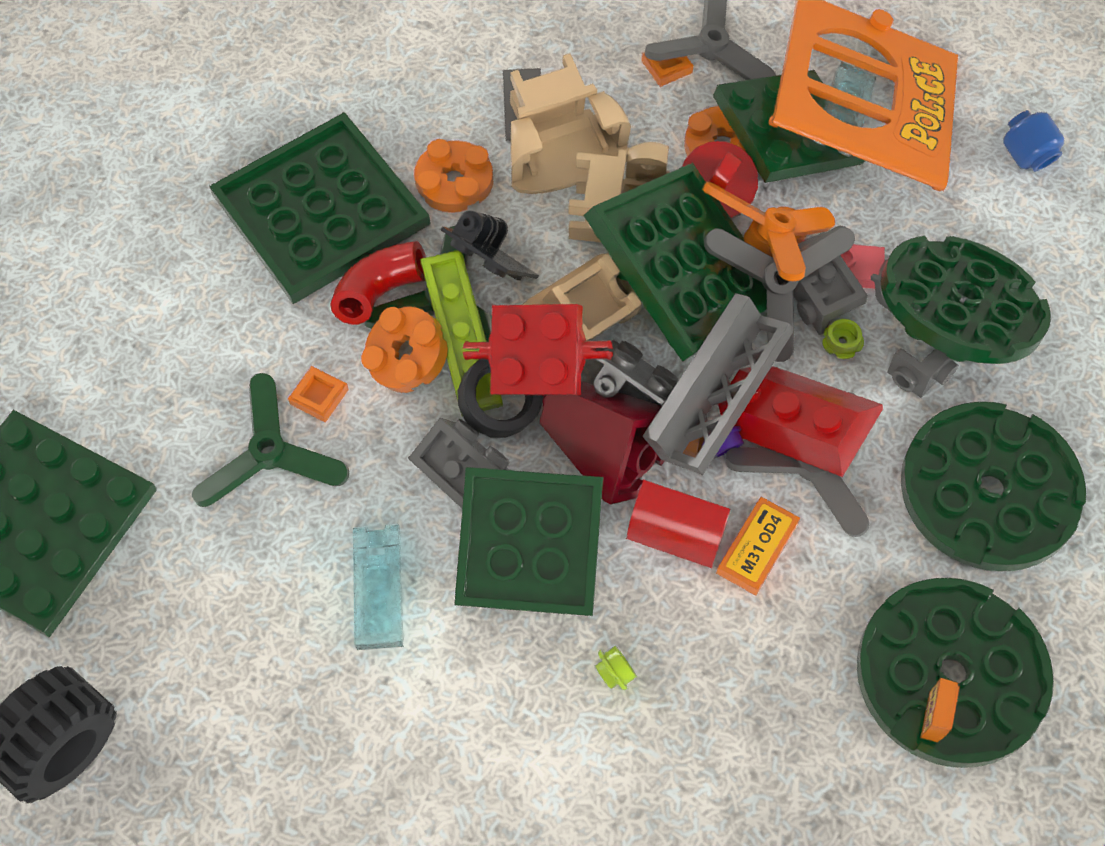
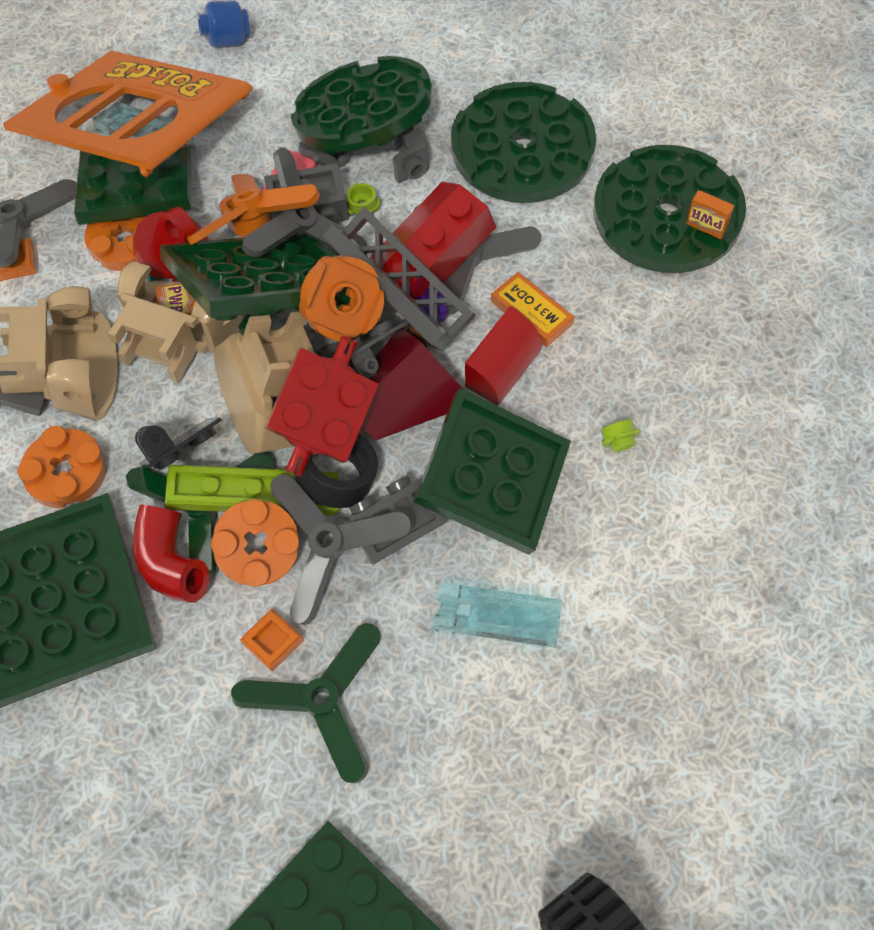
camera: 75 degrees left, 0 degrees up
(419, 408) = (345, 537): none -> dark grey piece
(674, 311) = (319, 292): none -> orange plate

